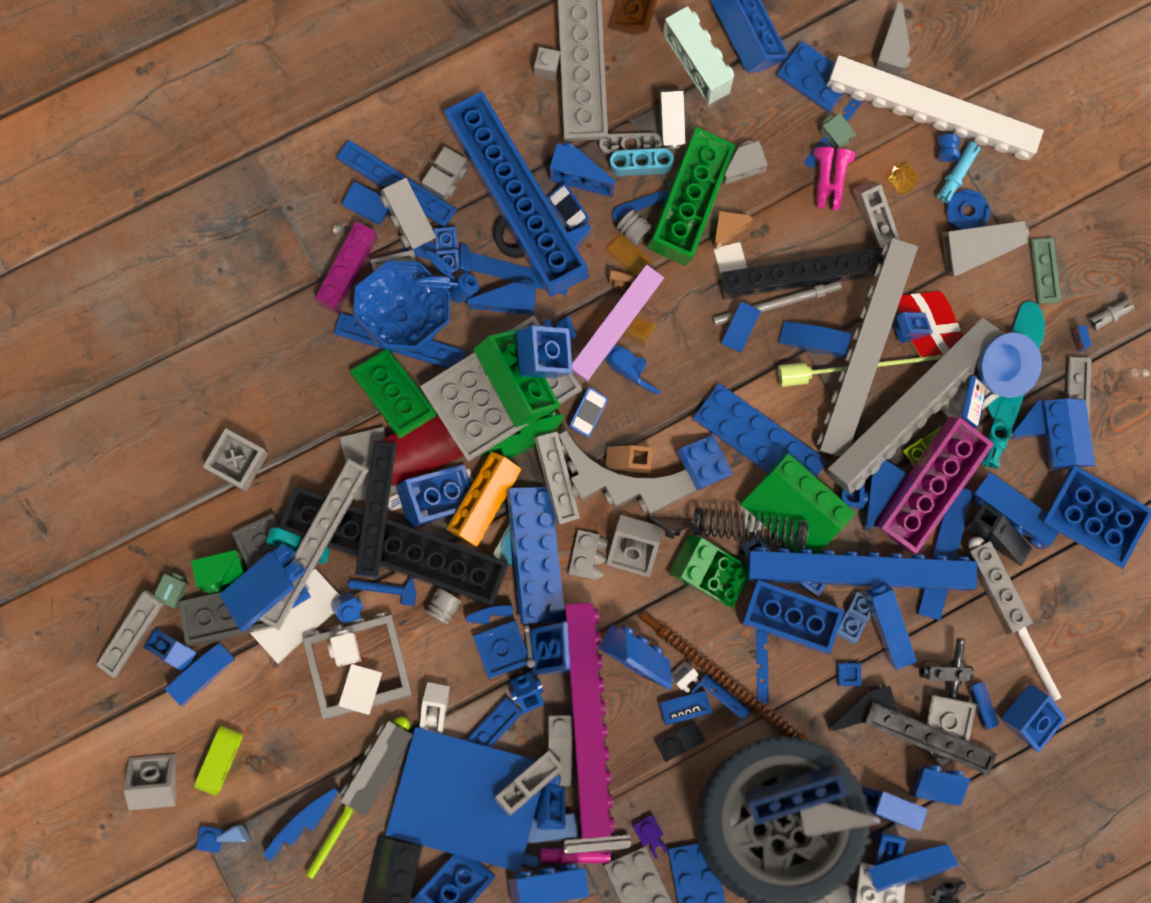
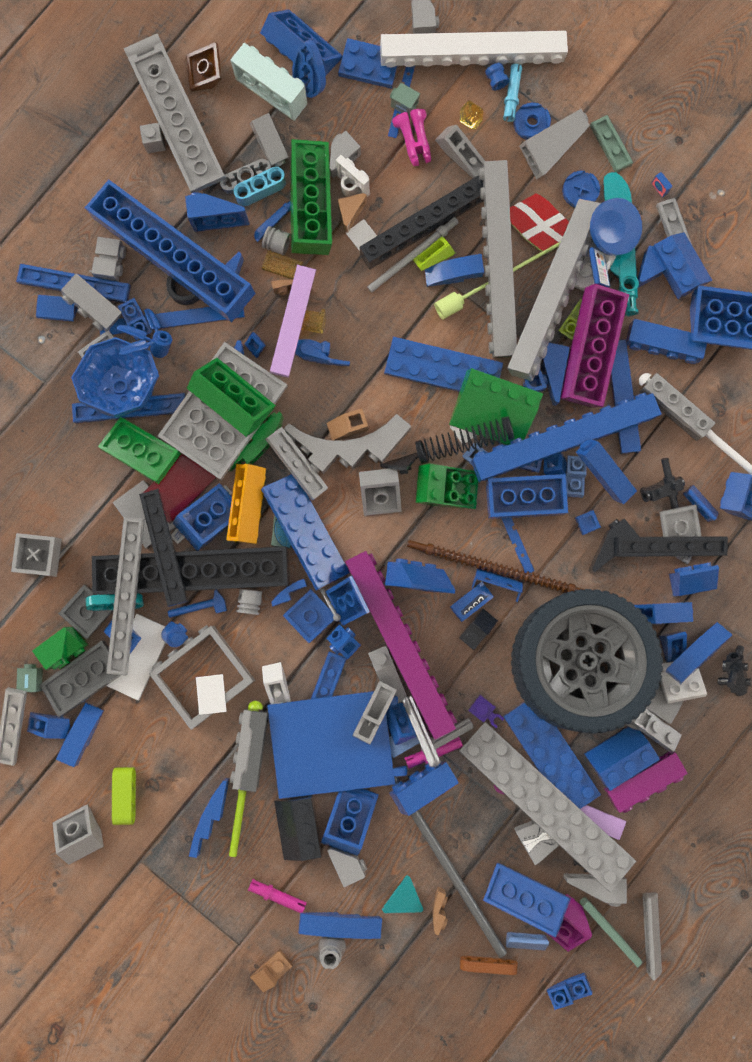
camera: 15 degrees left, 5 degrees up
(207, 839) = (143, 859): blue plate -> none
(235, 834) = (162, 849): medium blue slope -> none
(262, 587) = (98, 647): blue tile -> none
(344, 648) = (184, 668): white brick -> none
(346, 268) = (60, 366): magenta brick -> none
(512, 298) = (199, 338): blue slope -> none
(544, 352) = (244, 366): blue brick -> none
(568, 207) = (217, 246): slope -> none
(571, 825) = (421, 731): none -> light grey axle
(586, 555) = (345, 514): light grey plate -> none
(588, 412) = (300, 402): slope -> none
(683, 676) = (460, 577): white tile -> none
(705, 462) = (408, 403): blue plate -> none
(741, 184) = (350, 174): none -> white plate
(741, 327) = (392, 285): blue slope -> none
(747, 50) = (309, 63): none -> blue piece
(796, 794) = (591, 636): dark blue brick -> none
(800, 312) = (434, 254): none -> lime slope
(831, 818) = (624, 644): light grey slope -> none
(839, 596) = (555, 465): none -> blue slope
(912, 326) = (525, 229): blue slope -> none
(992, 305) = (580, 186): none -> blue tile
(996, 528) = (654, 360): black slope -> none
(1111, 314) = (676, 156): light grey pin -> none

